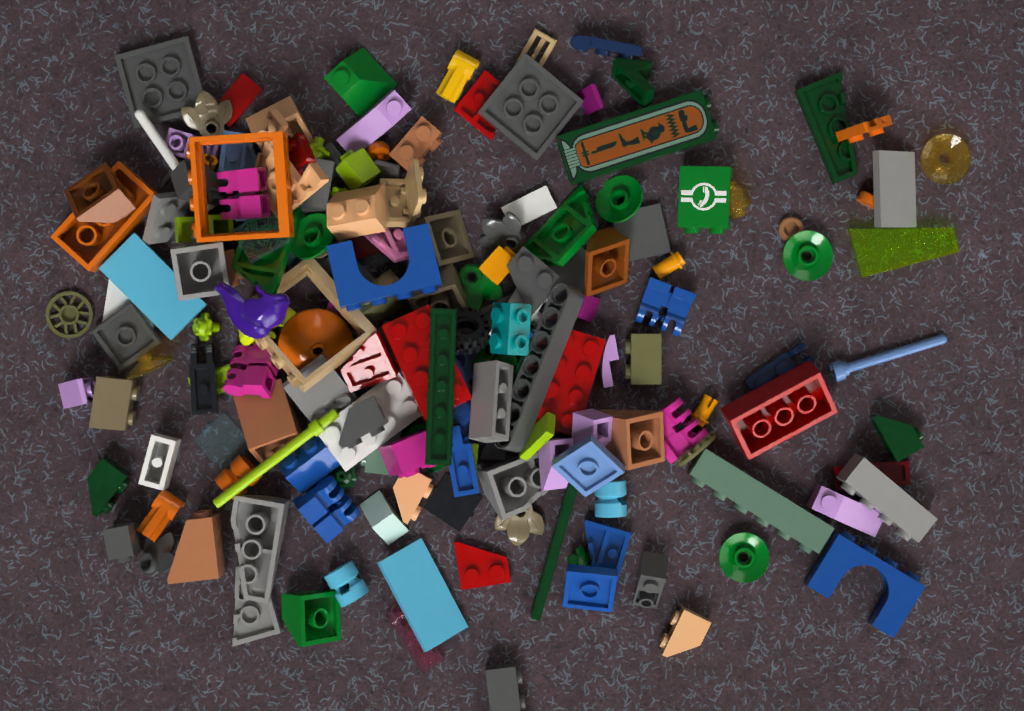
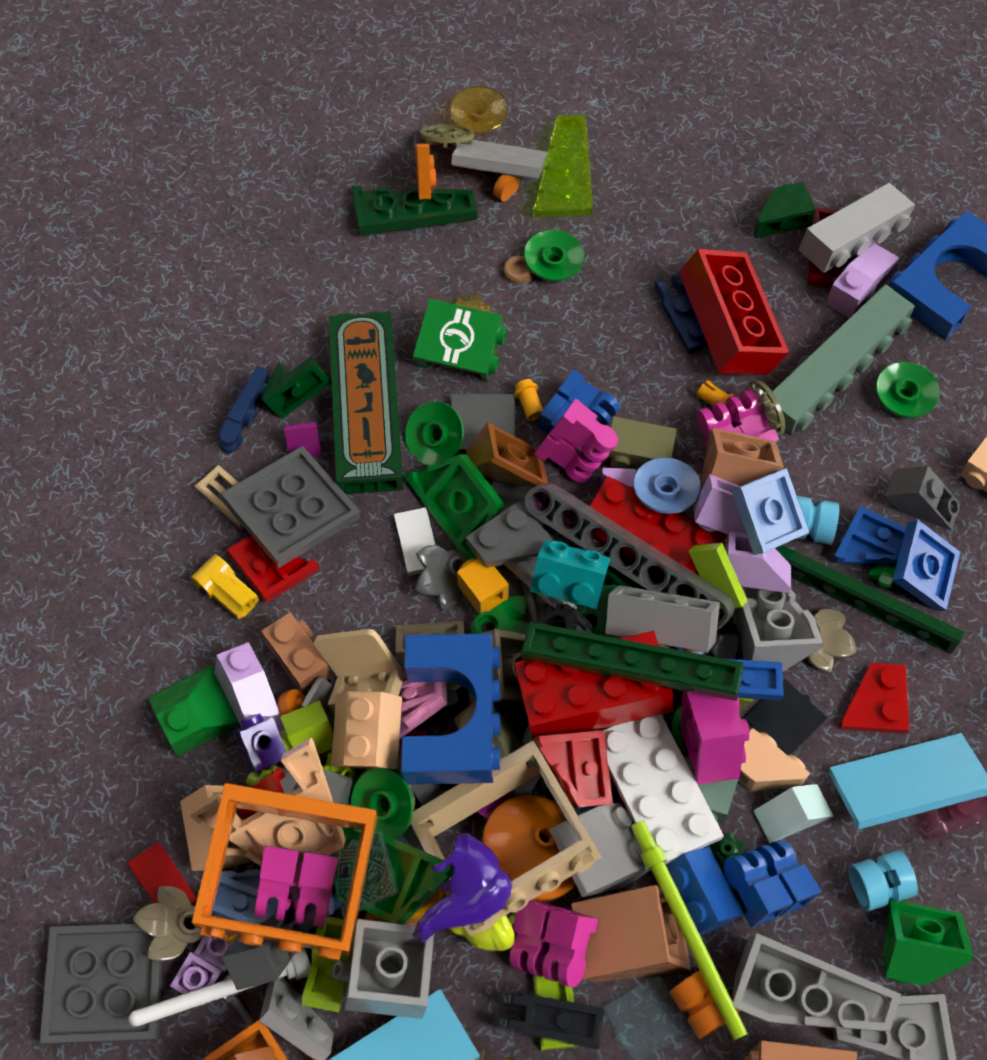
camera: 80 degrees left, 25 degrees down
(204, 326) = (472, 1002): lime plant -> none
(340, 139) = (260, 741): none -> dark purple brick
(360, 420) = (656, 787): dark grey slope -> none
(614, 379) = (670, 476): none -> medium blue dish
(630, 310) = (578, 442): none -> dark pink legs
(844, 369) = (688, 205): medium blue piece -> none
(909, 138) = (446, 134): none -> olive wheel

